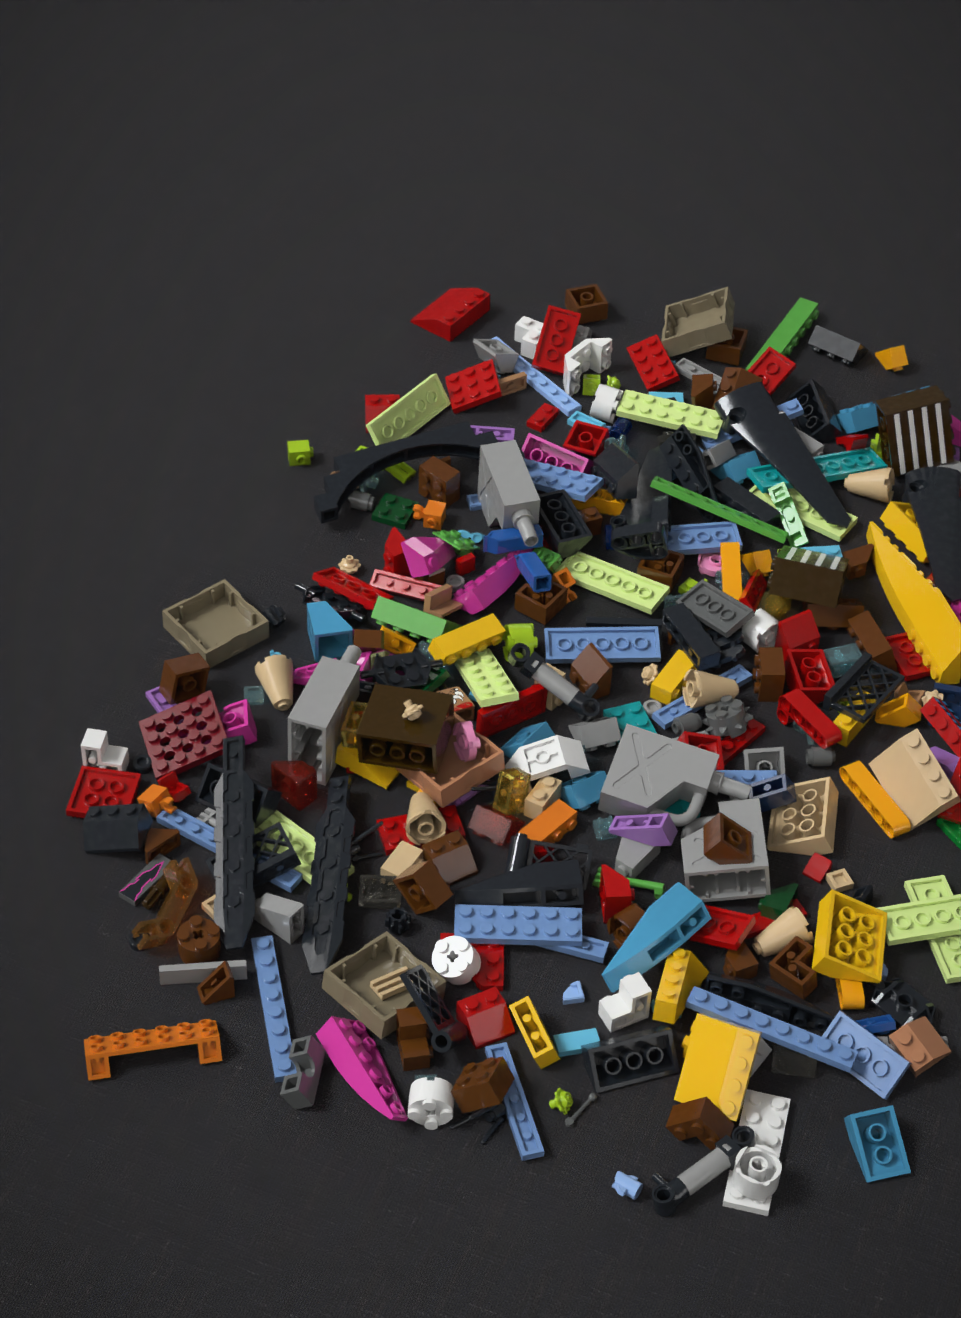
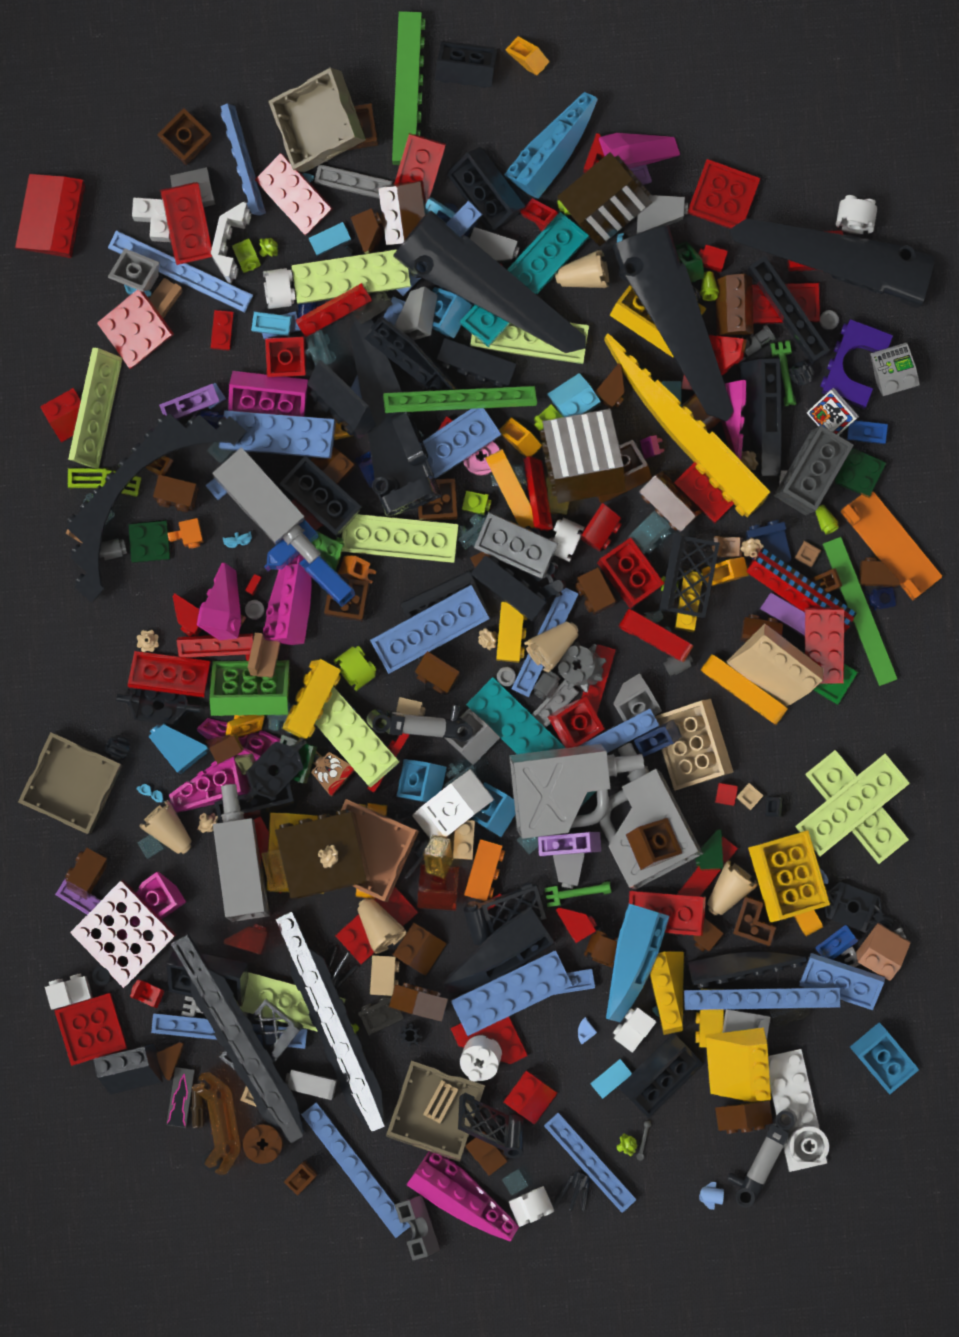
camera: 20 degrees left, 40 degrees up
(140, 1040) = (282, 1257): orange bracket -> none
(156, 800) = (141, 1018): orange brick -> none
(198, 972) = (282, 1169): light grey tile -> none
(299, 452) = (18, 513): lime brick -> none
(461, 545) = (232, 564): bright green hinge -> none
(467, 742) = (375, 832): bright pink plate -> none
(482, 1084) = (564, 1173): reddish brown brick -> none
(534, 1032) = (576, 1094): yellow brick -> none
(624, 333) = (243, 160): none -> medium blue plate
(644, 425) = (333, 310): none -> red plate
(789, 515) = (527, 363): slope -> none
(875, 608) = (651, 447): none -> magenta tile

